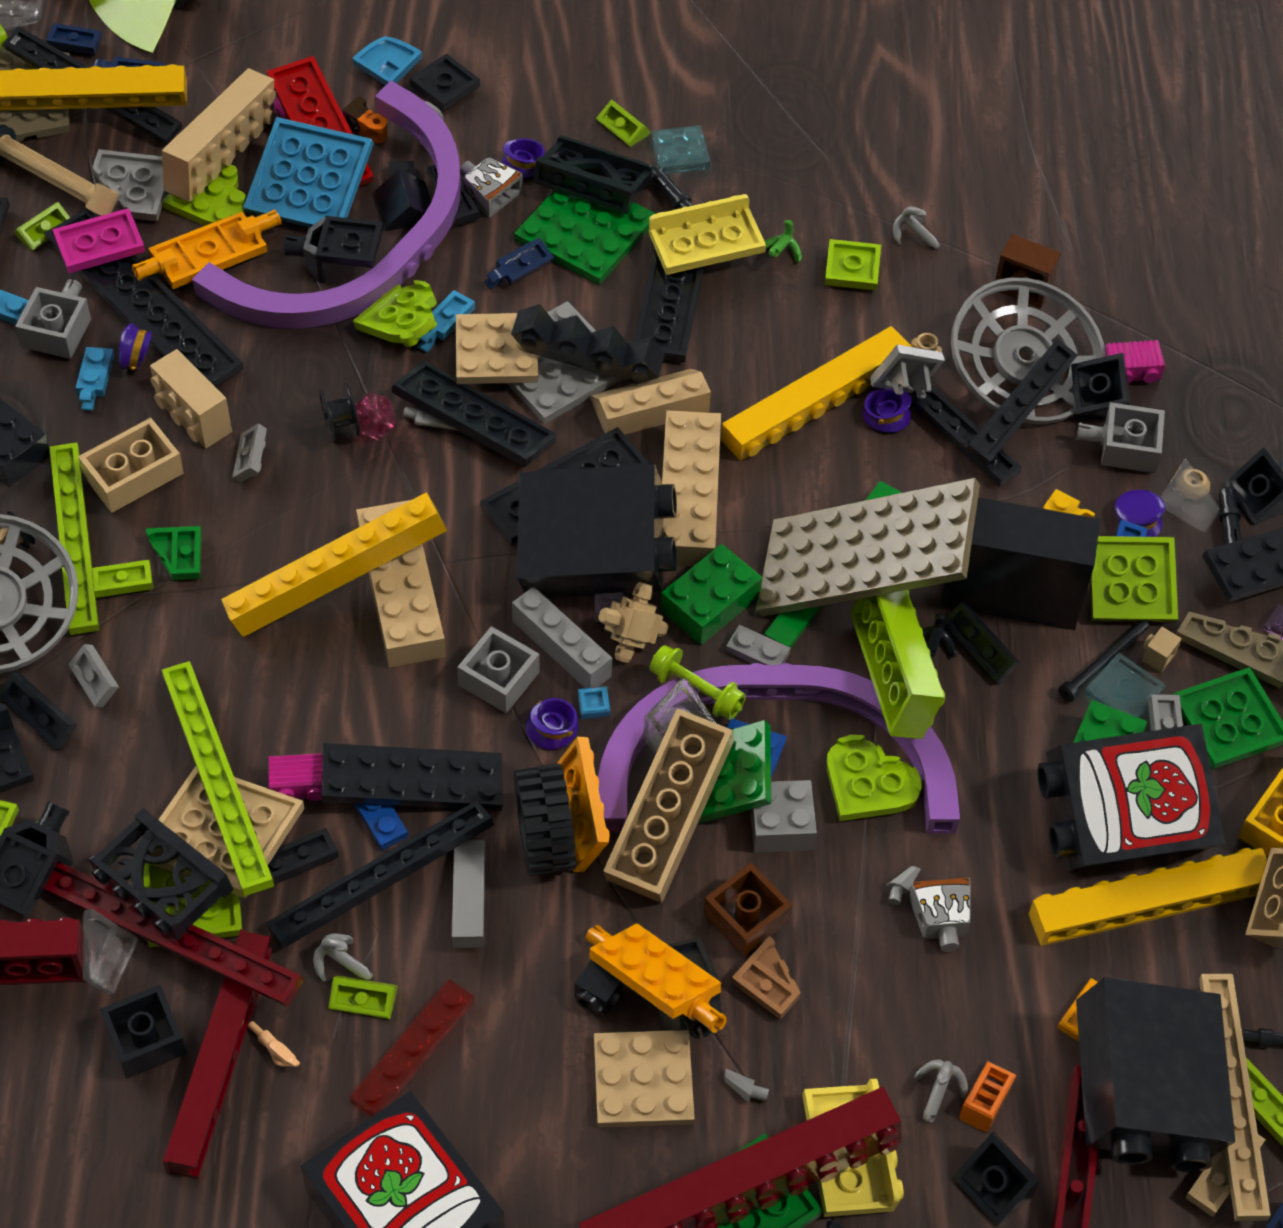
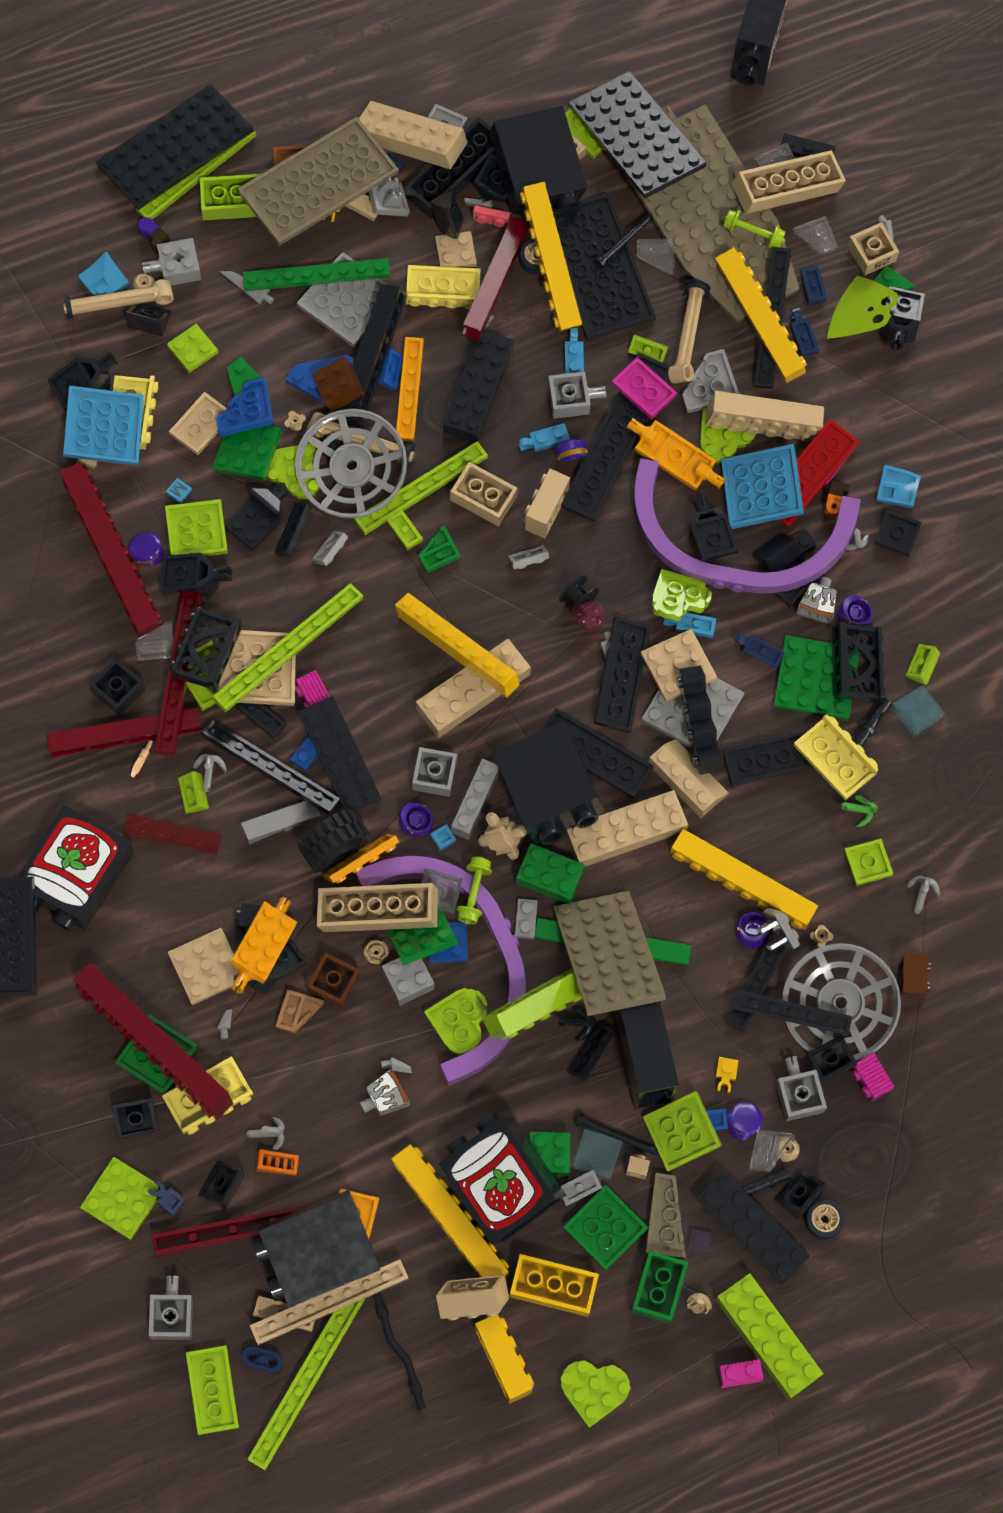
camera: 65 degrees right, 15 degrees up
(721, 836) = (373, 946): none -> tan plate

